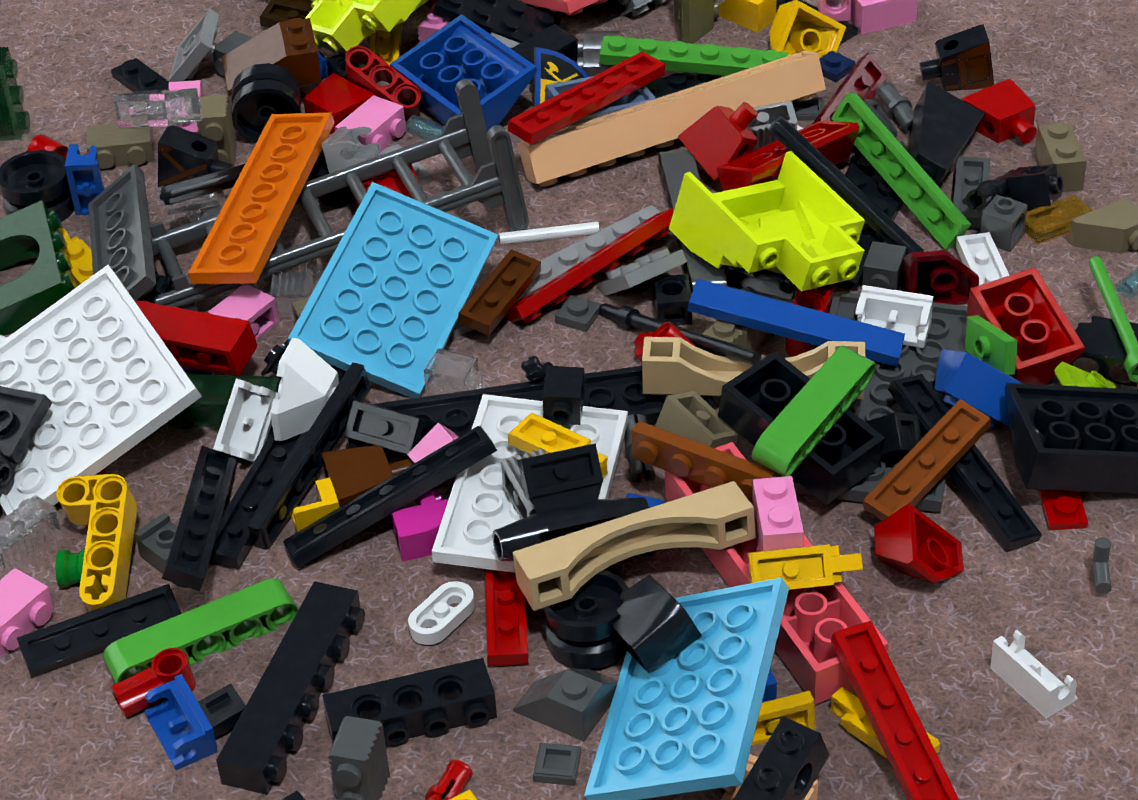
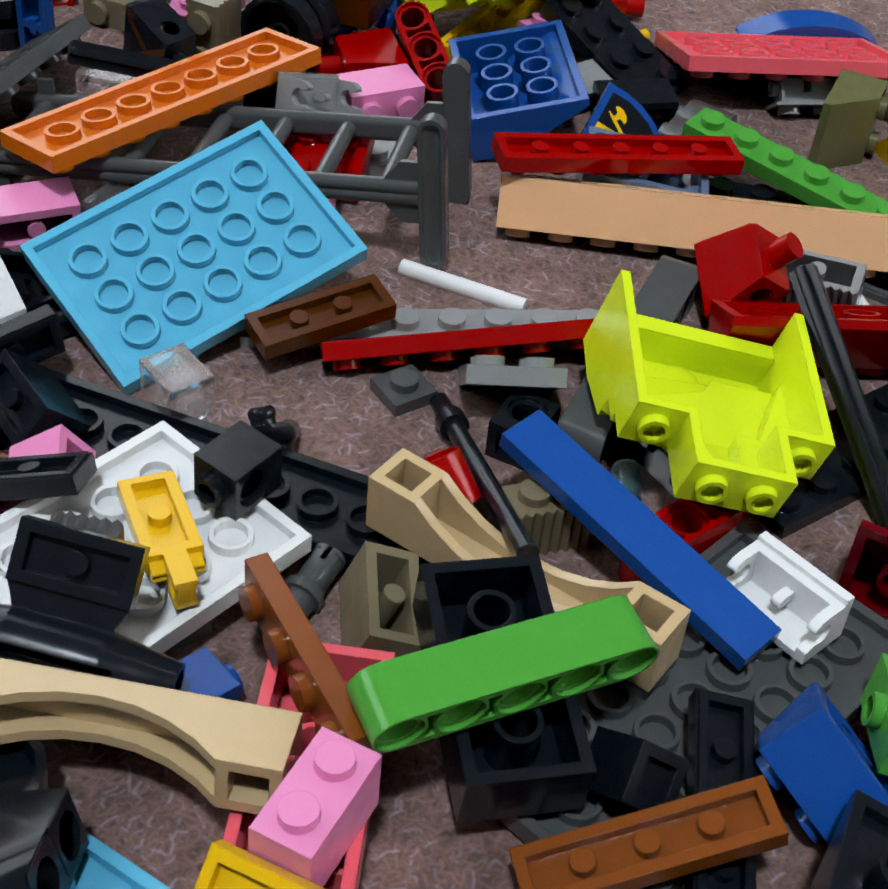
camera: 25 degrees right, 0 degrees up
(883, 265) = (830, 524): dark grey brick -> none

